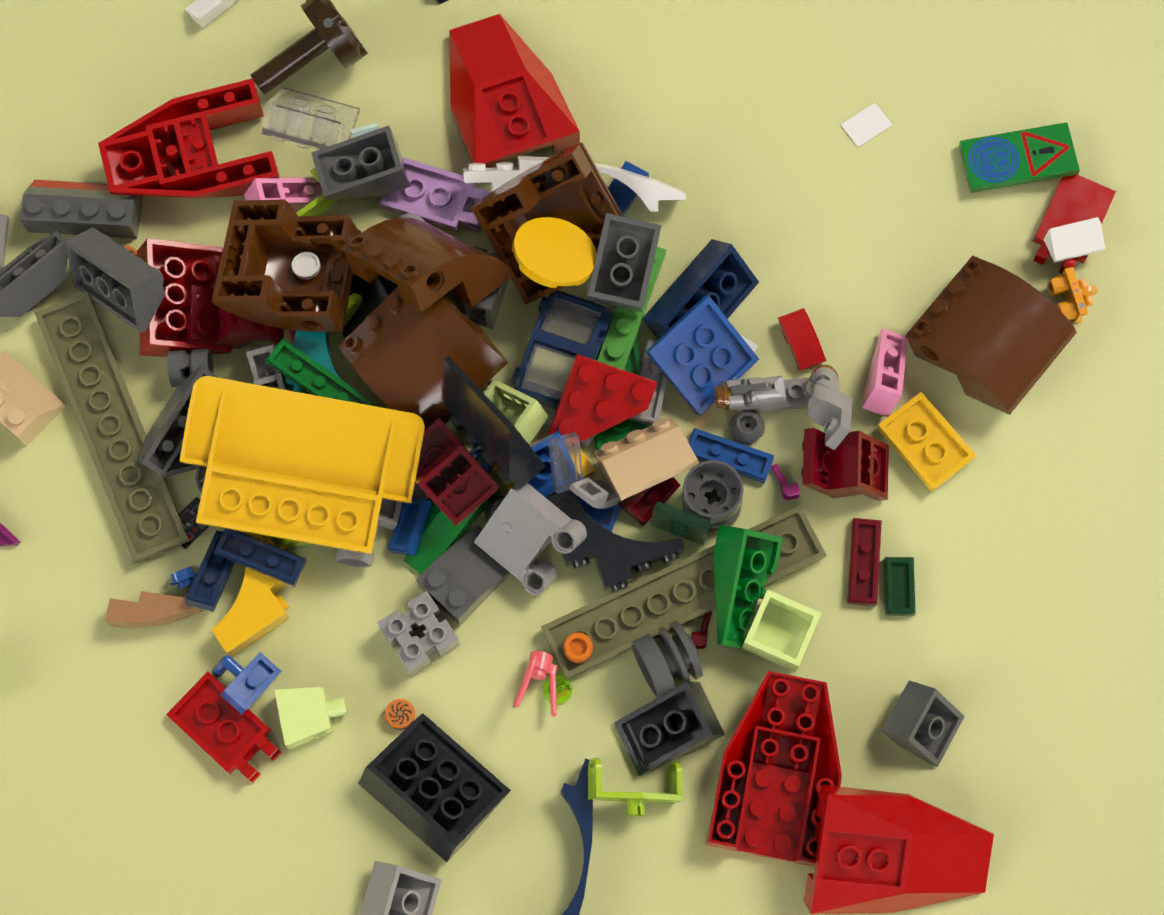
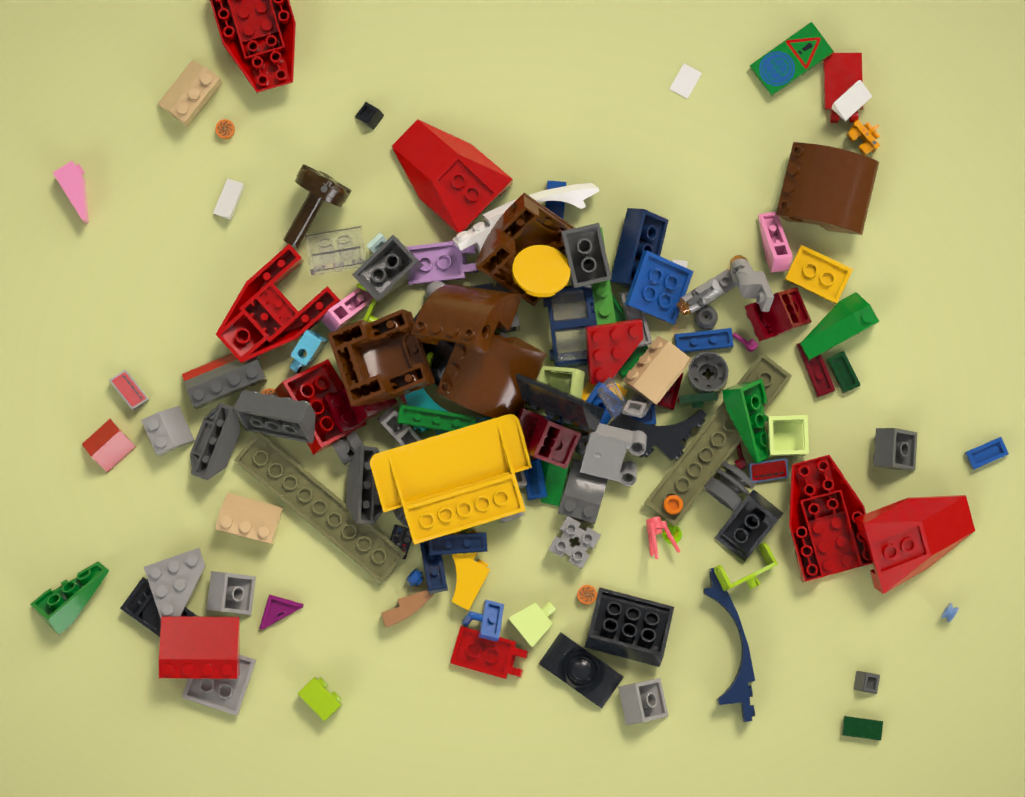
camera: 25 degrees left, 10 degrees up
(203, 219) = (313, 344): none -> medium azure torso
(306, 265) = (390, 351): white piece -> none
(338, 814) = (581, 670): none -> black slope
(733, 667) = (768, 470): none -> red slope
(802, 339) = (713, 245): red slope -> none
(931, 519) = (843, 322): none -> green wedge
(1050, 792) = (986, 453): none -> blue tile

